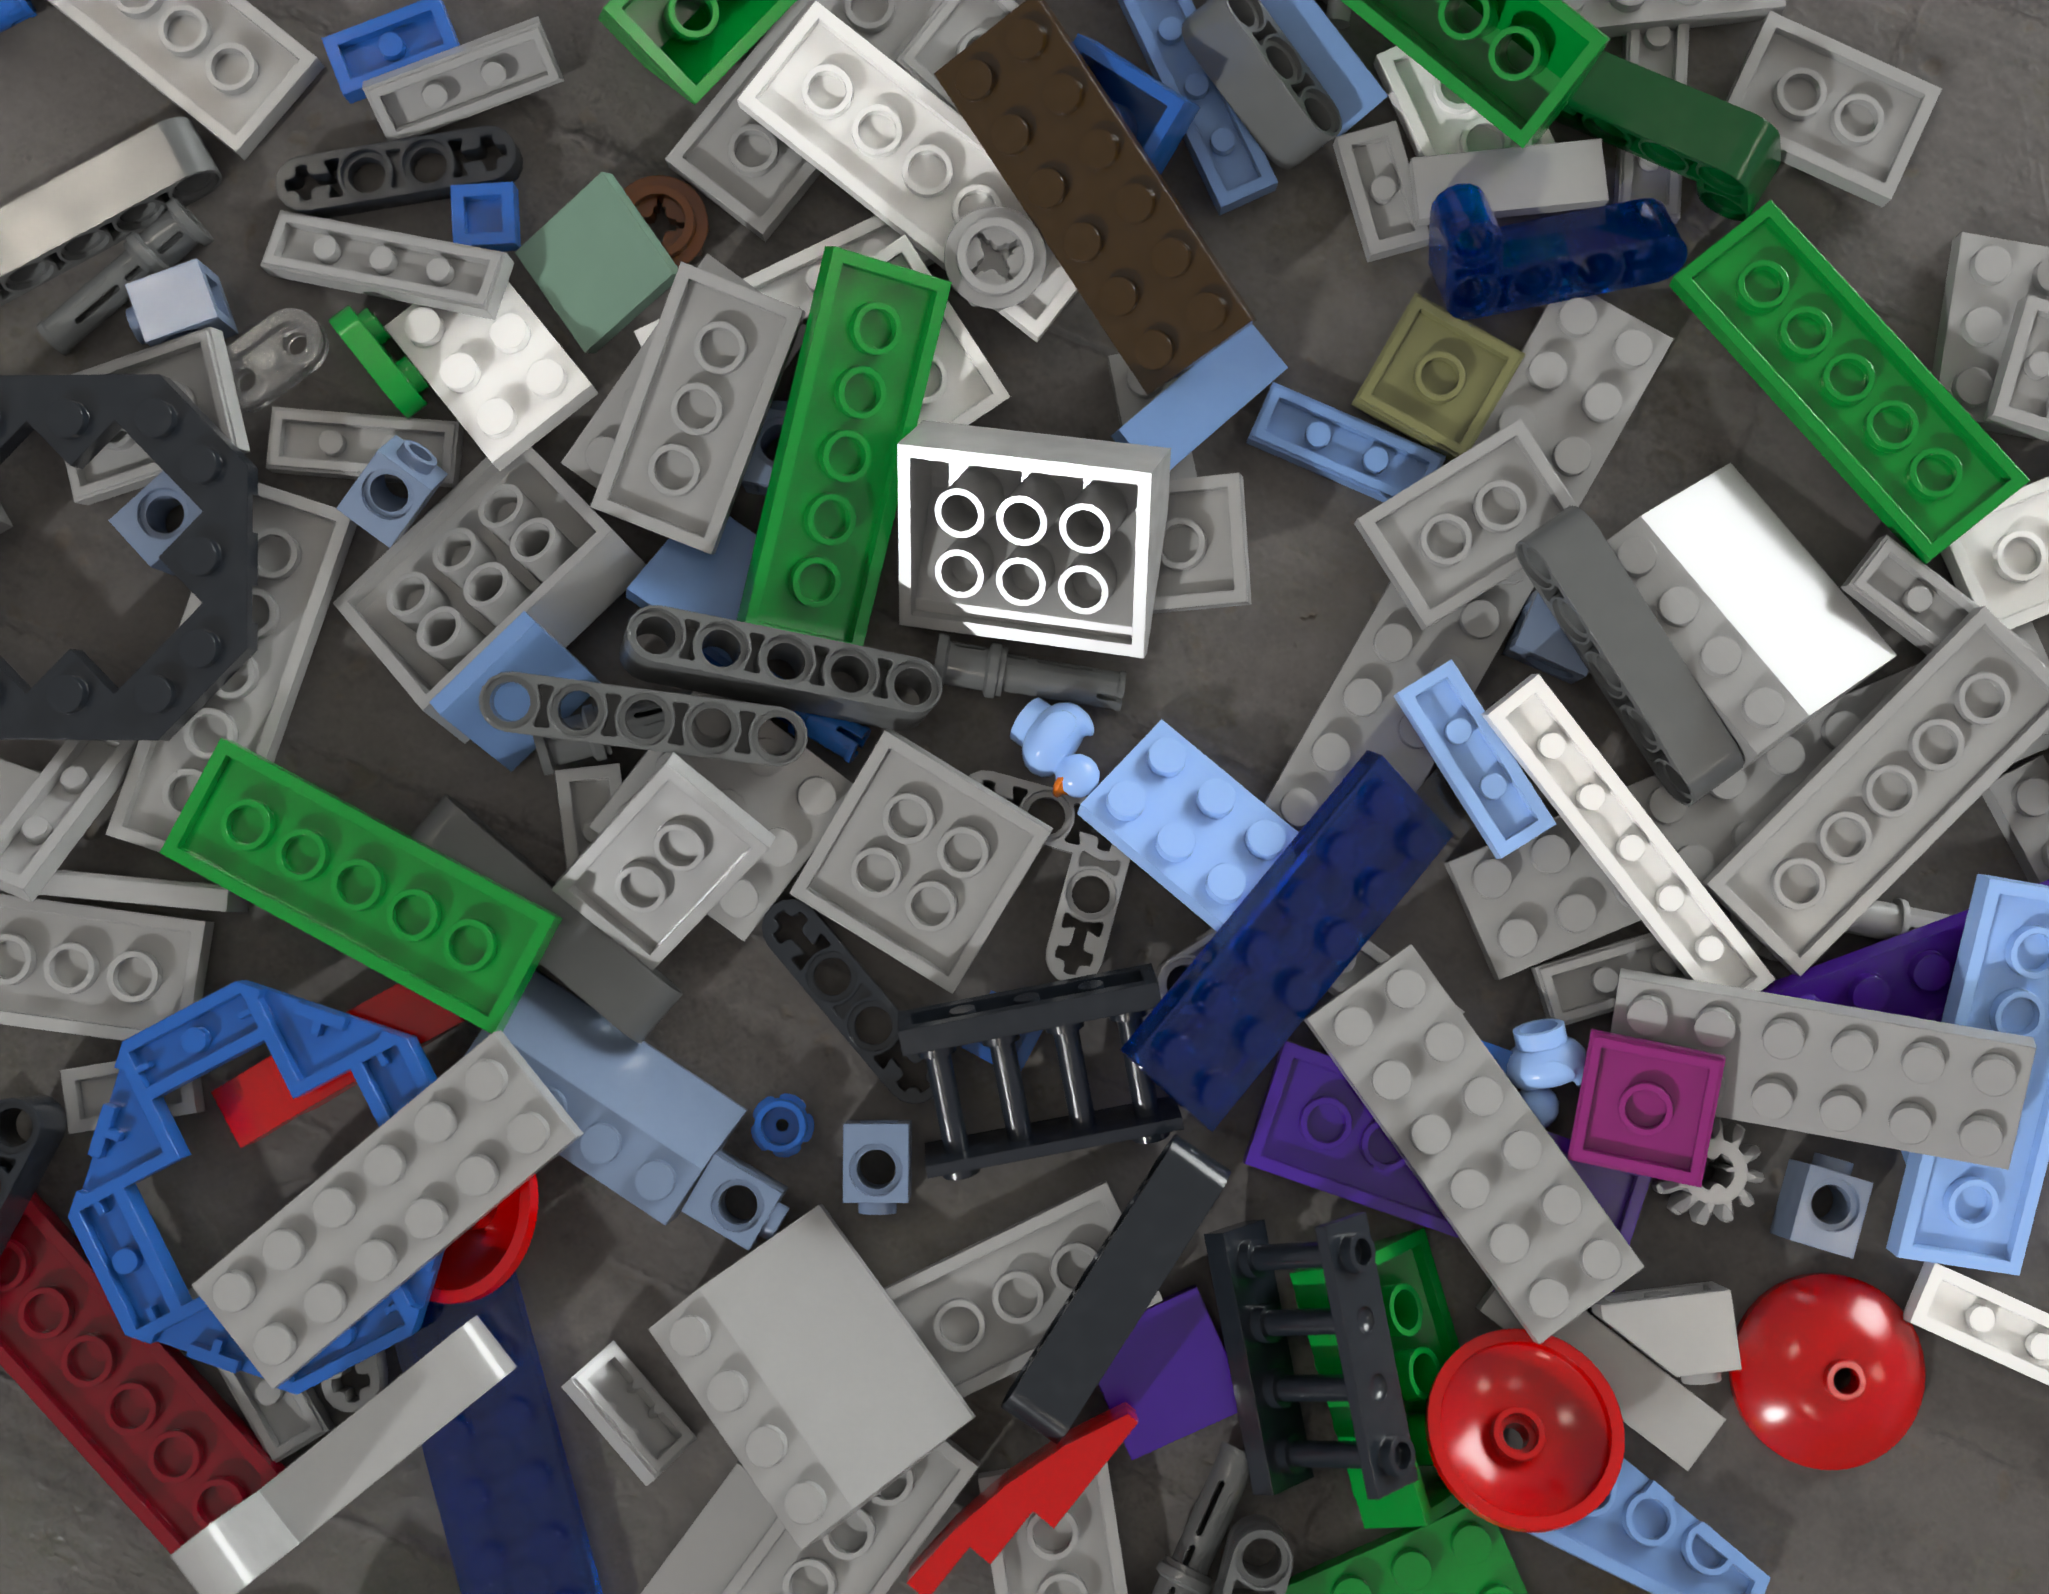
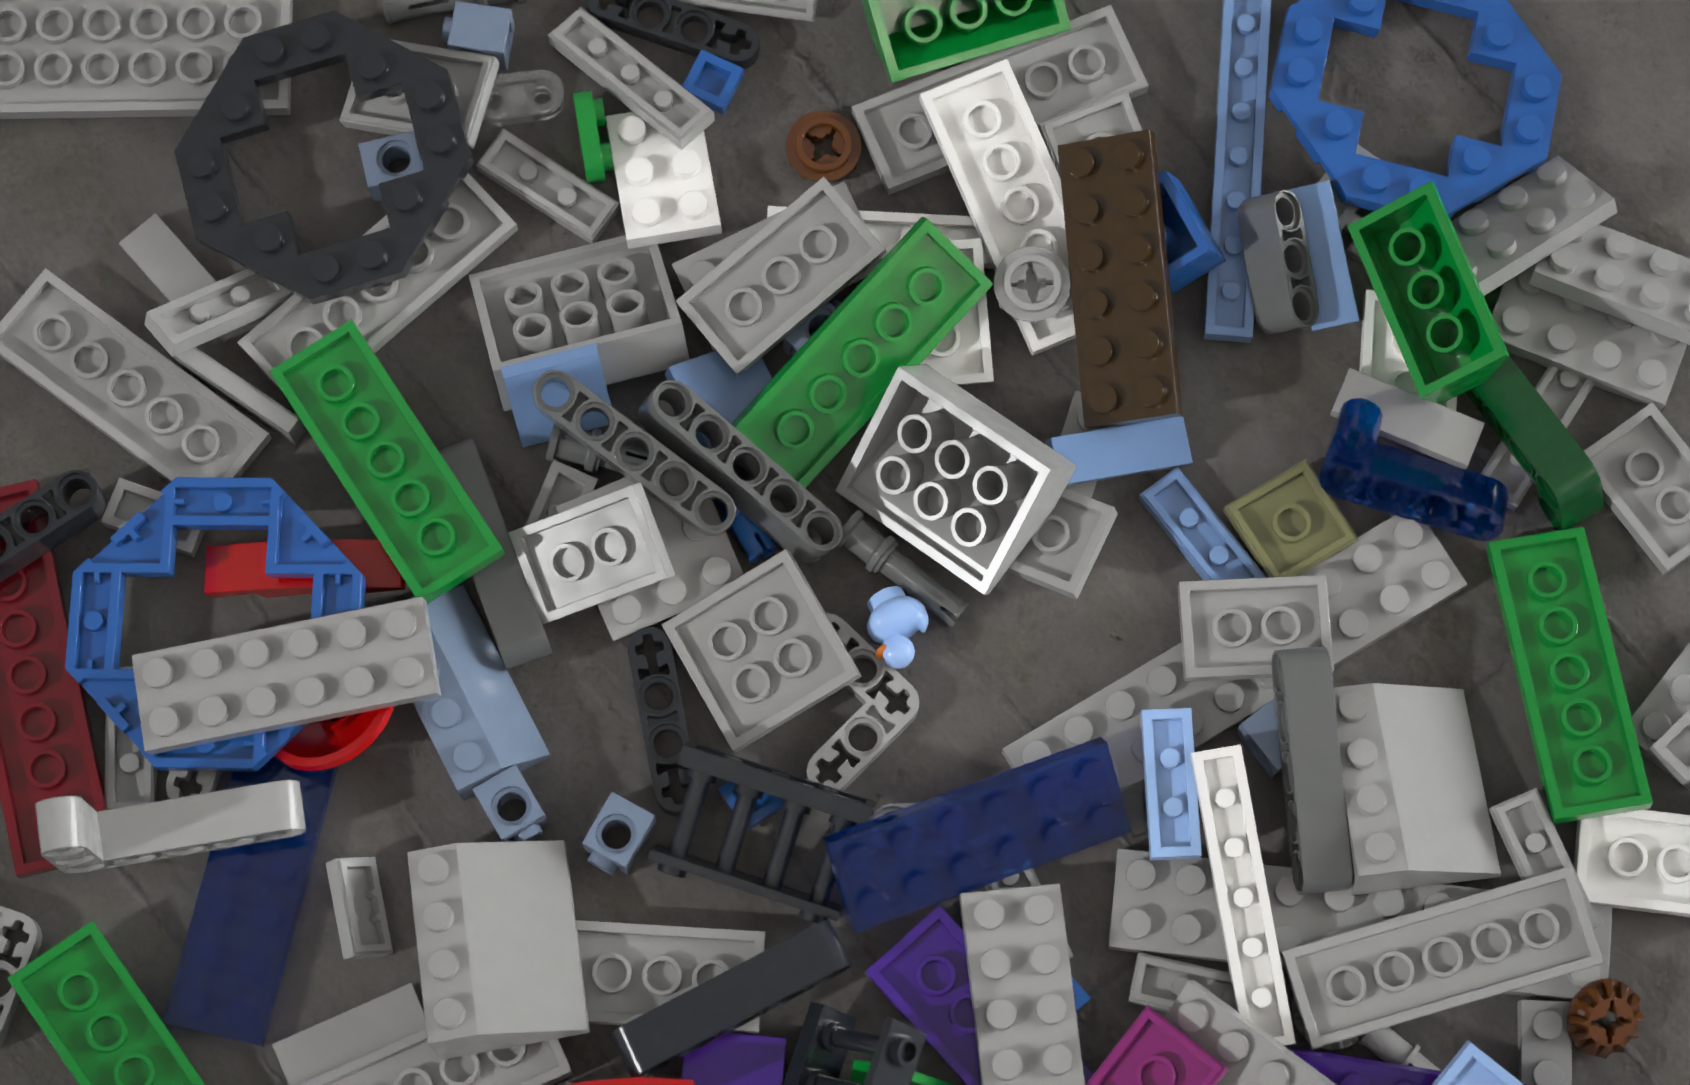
camera: 25 degrees right, 10 degrees down
(379, 510) = (534, 227): sand blue brick -> none
(598, 263) = (769, 150): sand green tile -> none
(799, 1125) = (564, 764): blue plate -> none
(1187, 824) = (952, 720): light blue plate -> none
(1380, 190) = (1319, 379): light grey plate -> none
(1544, 1060) = (1106, 1014): light blue animal -> none

